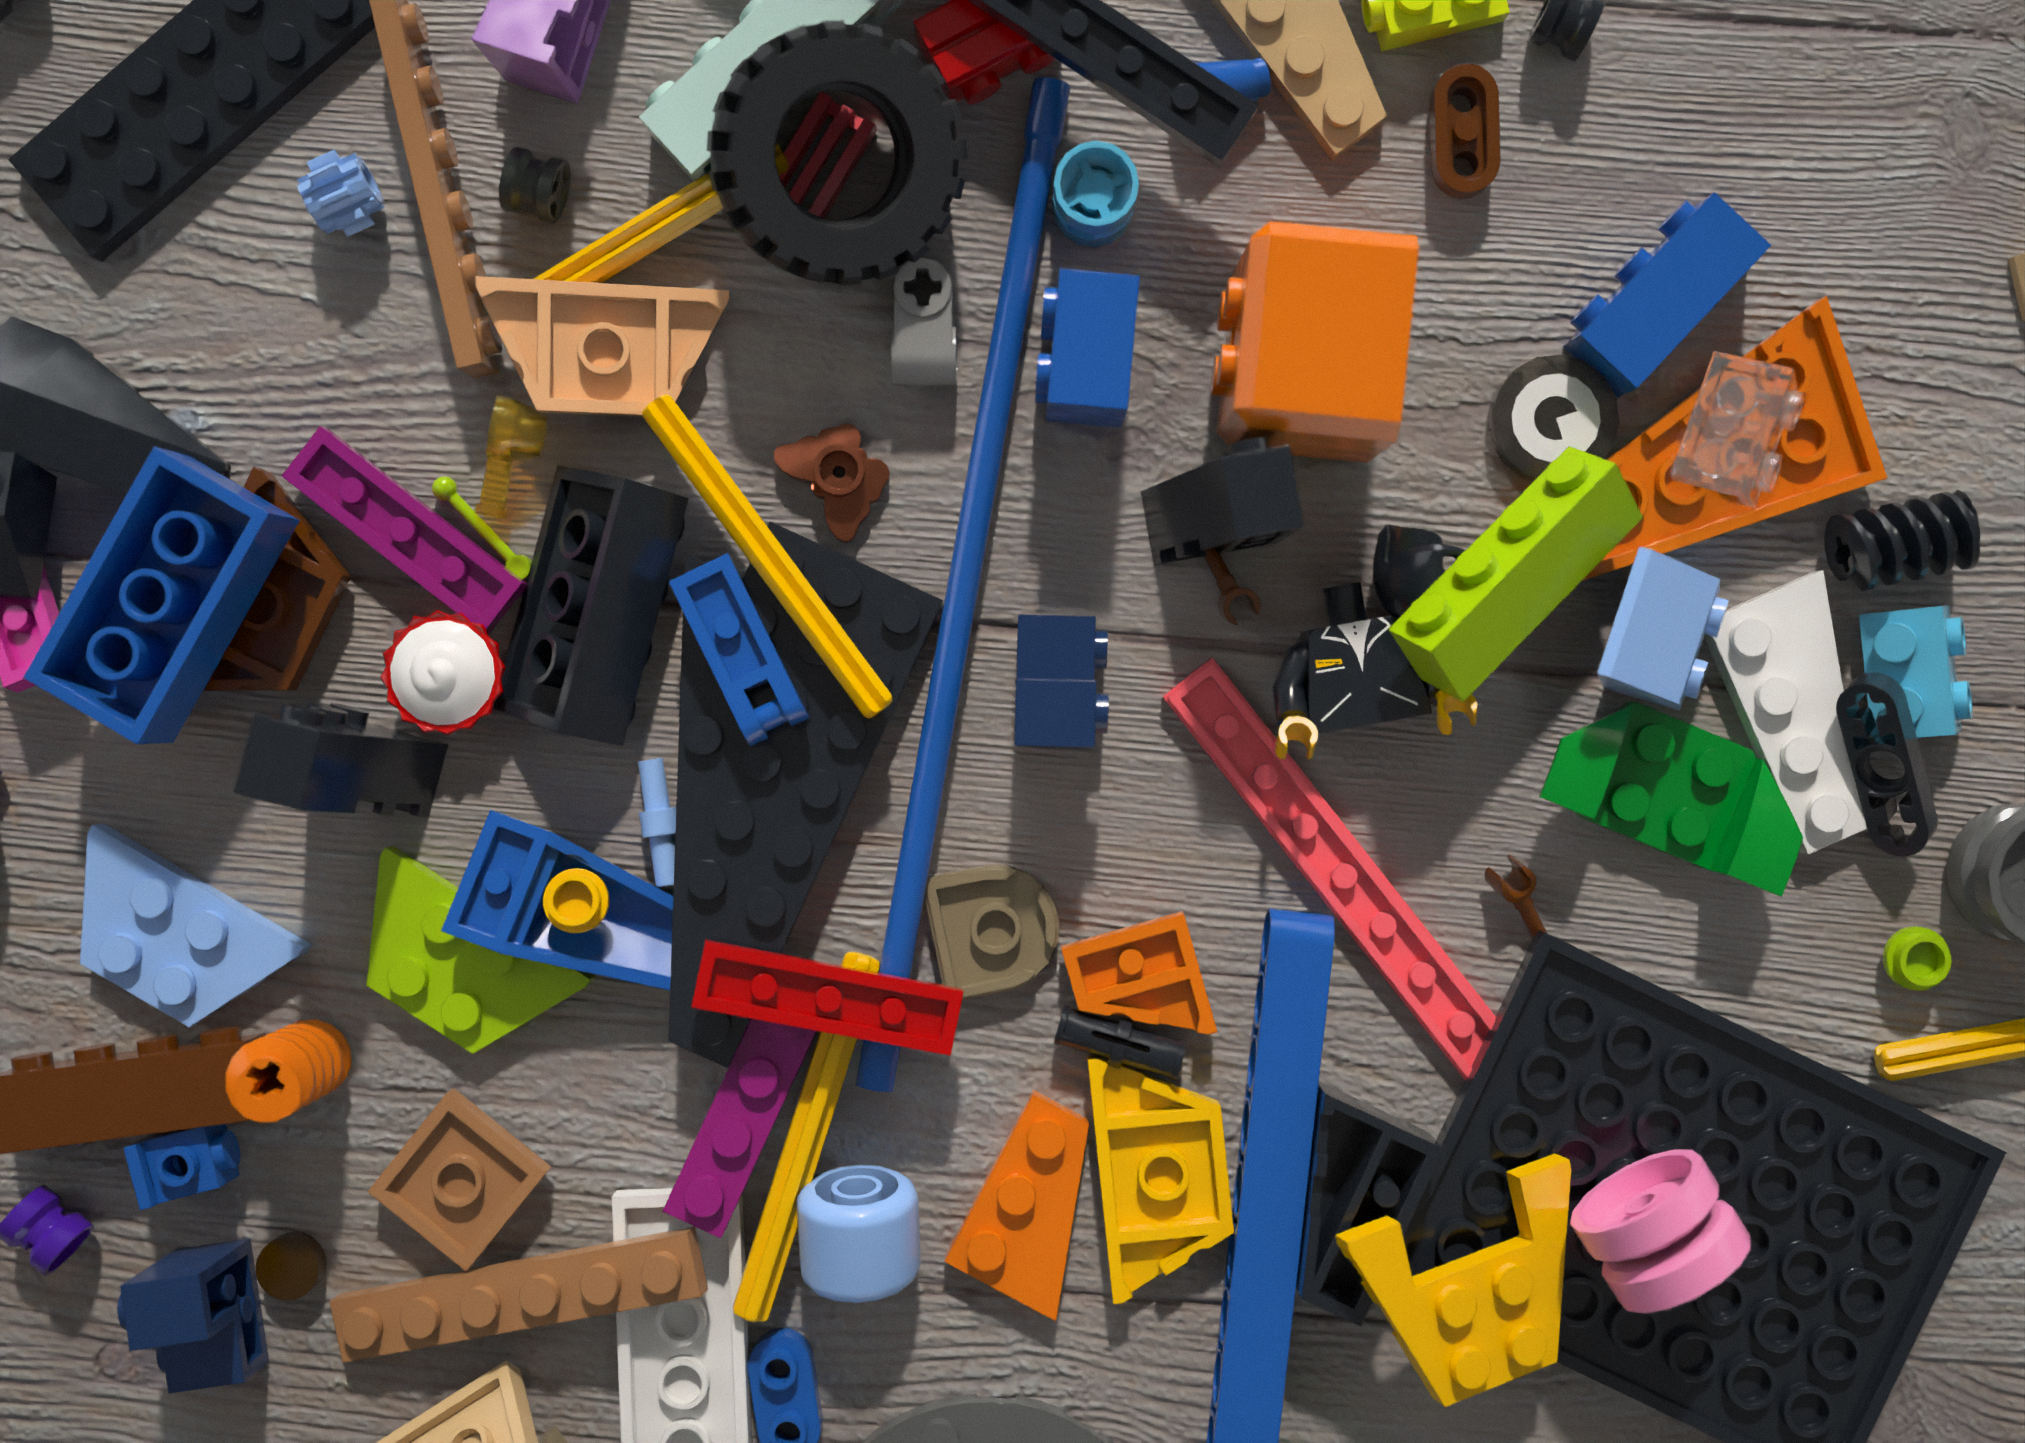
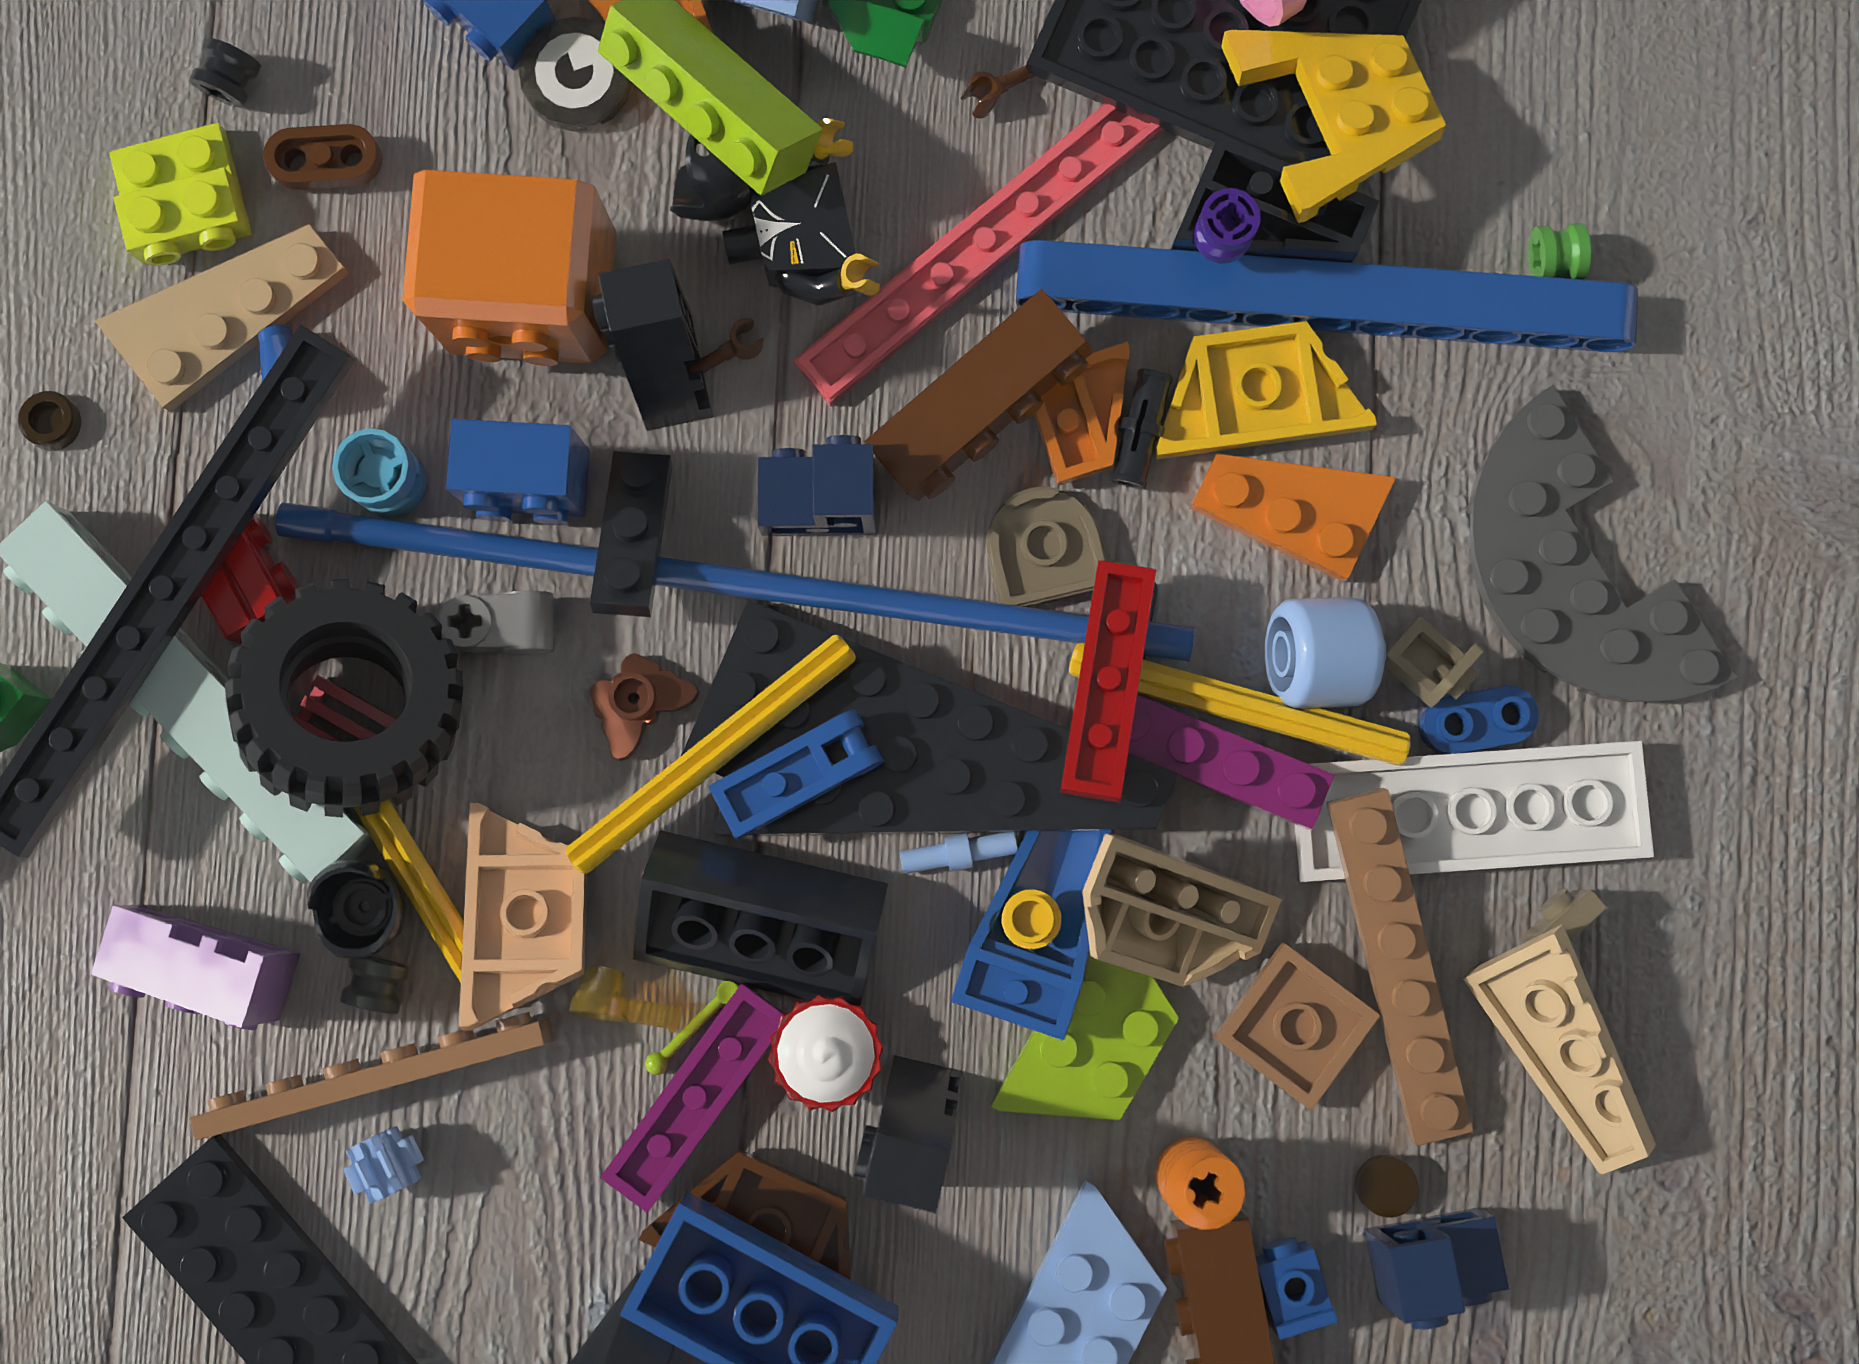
camera: 95 degrees left, 5 degrees down
(578, 1054) = (1170, 914): none -> tan wedge
(595, 155) = (336, 905): none -> black helmet
(844, 1350) = (1431, 663): none -> dark tan bracket
(1016, 473) = (631, 534): none -> black plate
(1156, 865) = (980, 397): none -> reddish brown brick
(1324, 1144) = (1221, 238): none -> dark purple wheel

